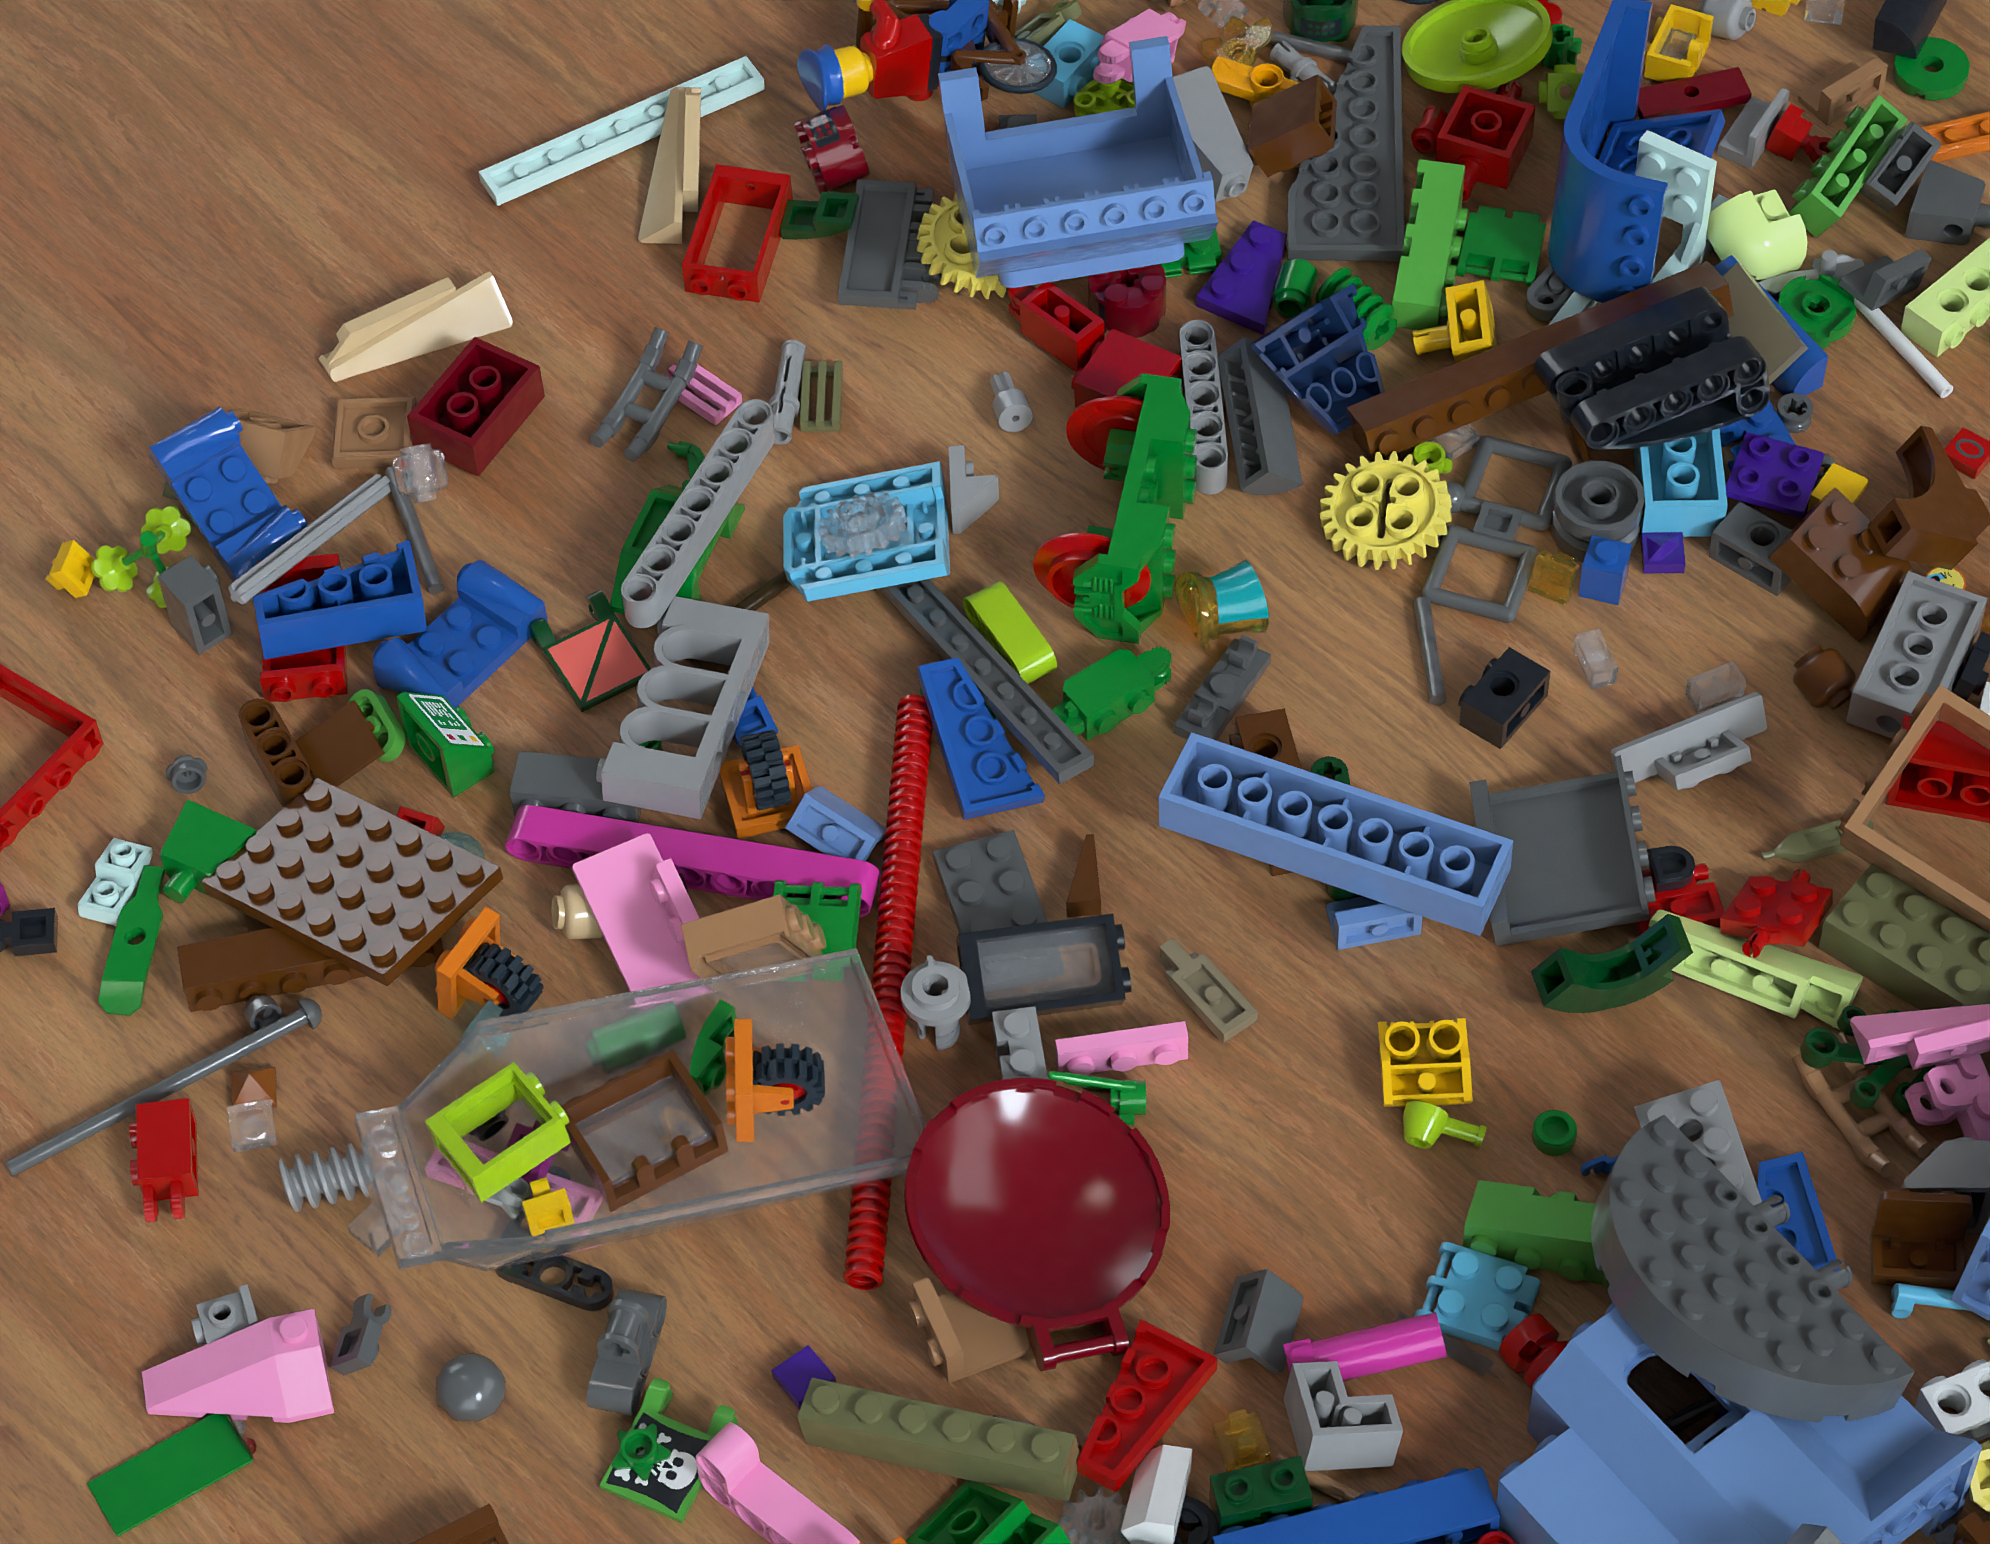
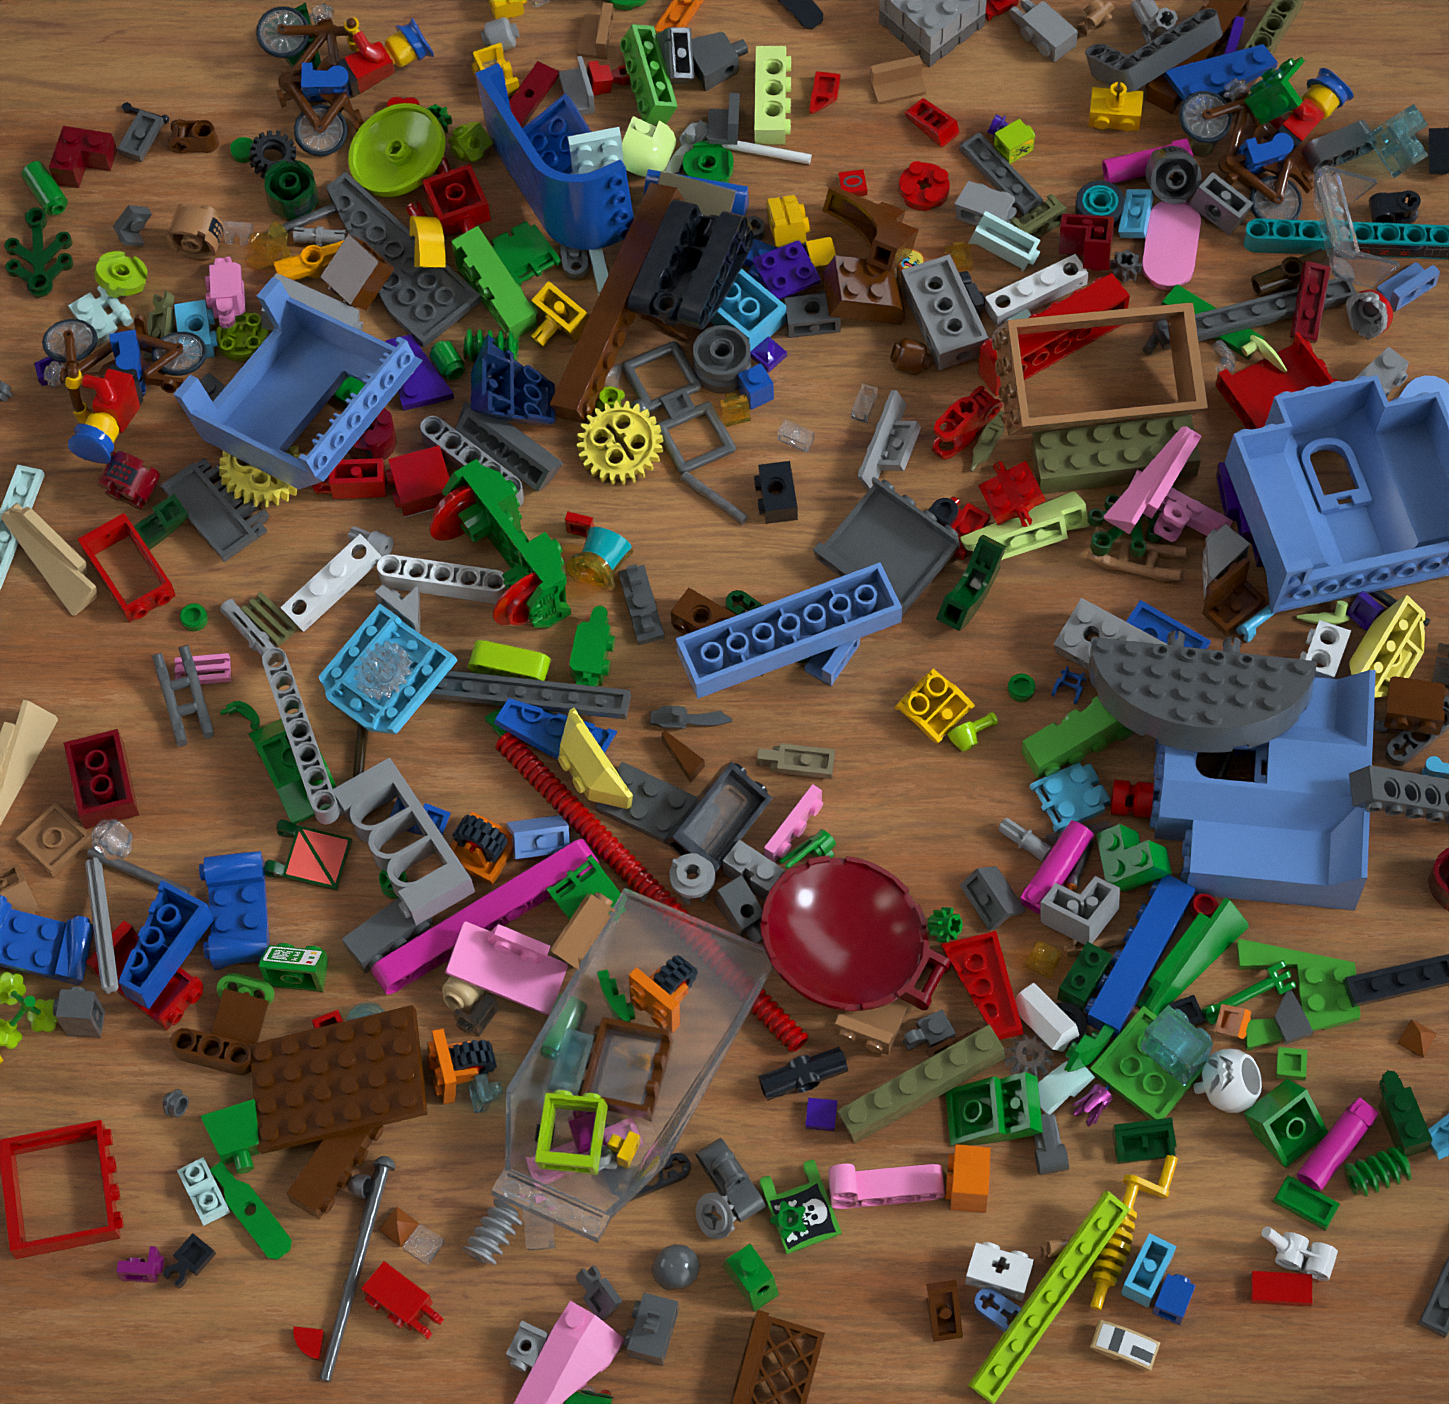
camera: 45 degrees left, 10 degrees up
(39, 1117) = (309, 1341): none -> red tile
(370, 1425) = (652, 1328): none -> dark grey brick
(528, 1455) = (750, 1275): none -> green torso
(566, 1370) = (708, 1222): none -> light grey gear
(569, 953) = (481, 1015): none -> clear smoke bracket
(585, 1061) = (570, 1061): none -> clear light blue brick
(750, 334) = (193, 617): none -> green tile
(831, 1315) = (803, 1073): none -> black piece
(934, 401) = (331, 582): none -> white piece
(959, 1066) = (738, 900): none -> dark grey torso
(965, 791) = (590, 766): none -> light yellow wedge
(1025, 1401) = (931, 1030): none -> dark grey plate
(1028, 481) = (433, 571): none -> white beam
(1129, 839) = (677, 718): none -> dark grey piece
(1173, 1308) = (945, 924): none -> green gear
(1242, 549) = (578, 523): none -> red tile
(1366, 1291) = (1024, 839): none -> light grey axle
(1399, 149) = (428, 242): none -> yellow brick
(1405, 1377) = (1074, 879): none -> flat silver piece
(1457, 1415) = (1128, 861): none -> green brick
(1806, 790) = (964, 421): none -> red piece
(1837, 426) = (787, 220): none -> yellow brick

